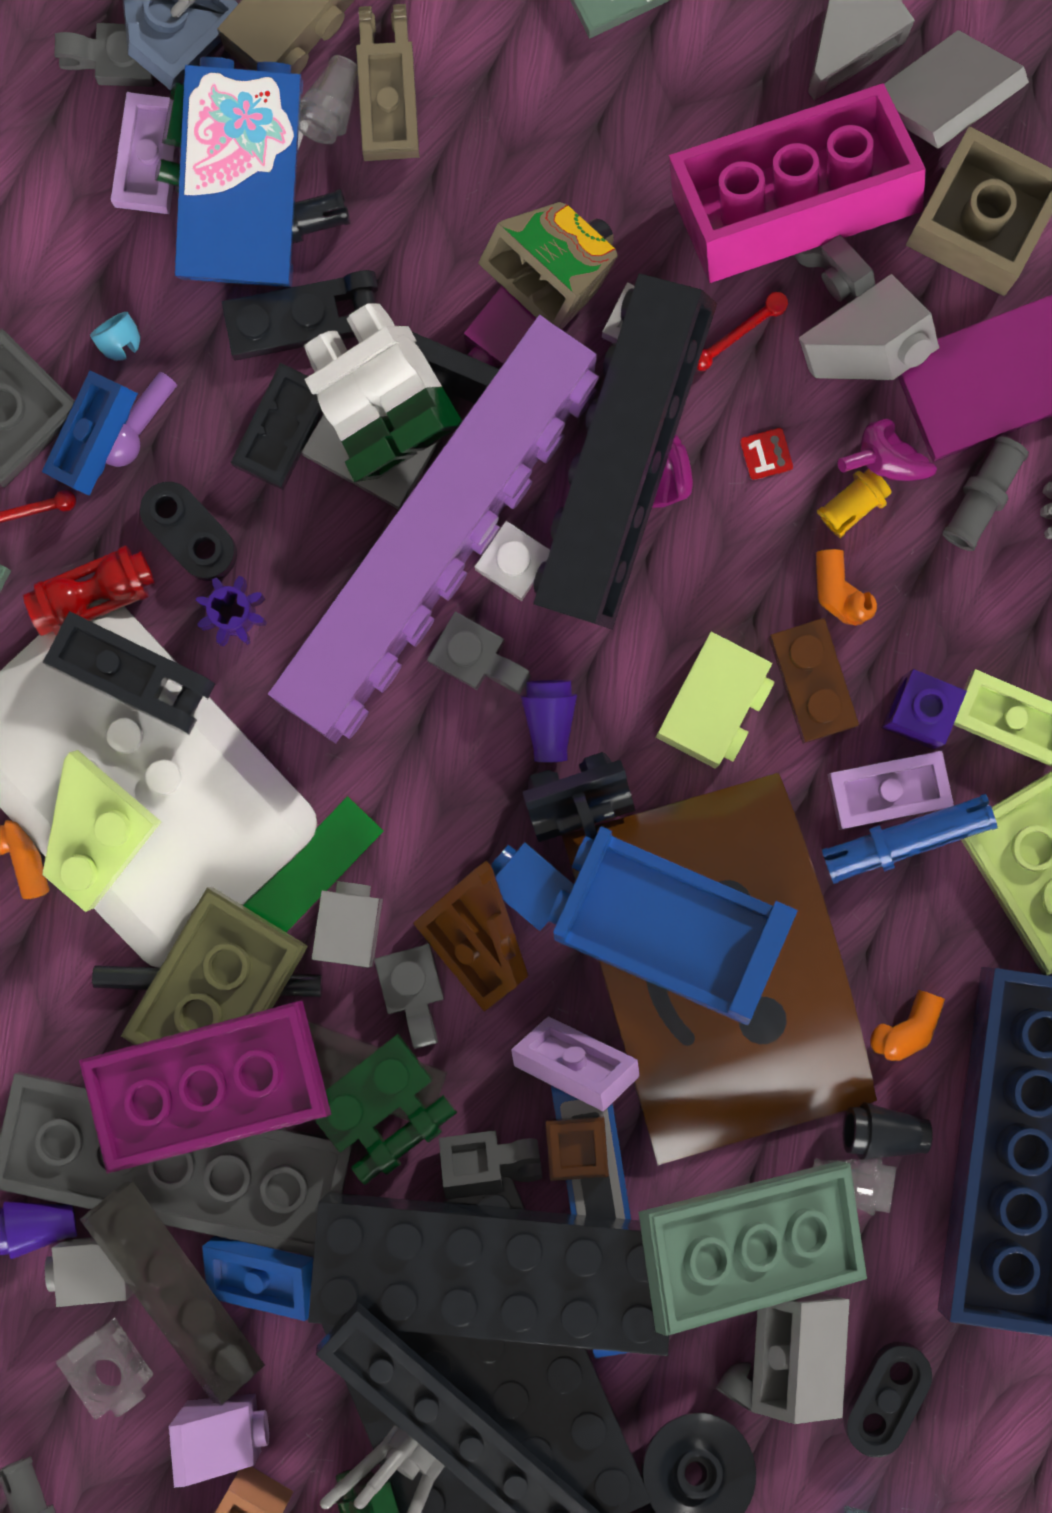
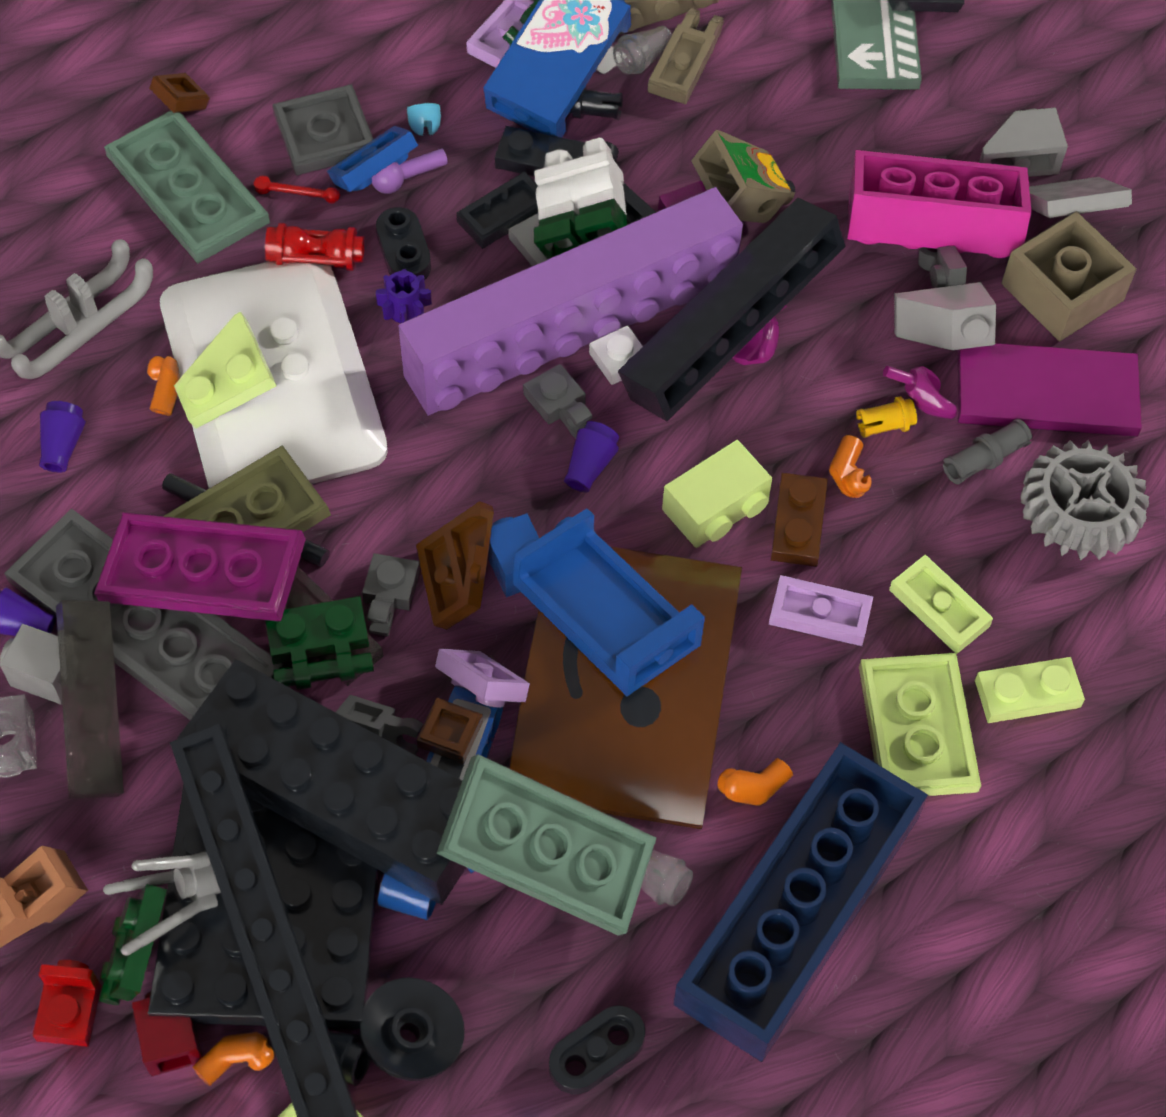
camera: 20 degrees right, 25 degrees down
(126, 672) = (311, 290): black plate -> none
(216, 1438) = (54, 812): lavender slope -> none
(258, 1277) = (153, 715): blue plate -> none
(316, 867) = (374, 483): green sticker -> none
(347, 925) = (366, 522): light grey brick -> none
(578, 800) = (568, 500): black hips -> none
(736, 1385) = (482, 986): dark grey hinge -> none
(766, 454) = (837, 368): red sticker -> none
(774, 306) = (889, 283): red hinge -> none
(801, 1359) = (543, 971): light grey brick -> none
(884, 1133) = (697, 846): black cone -> none
(908, 839) = (822, 646): blue pin -> none
(924, 709) = (872, 561): dark purple brick -> none

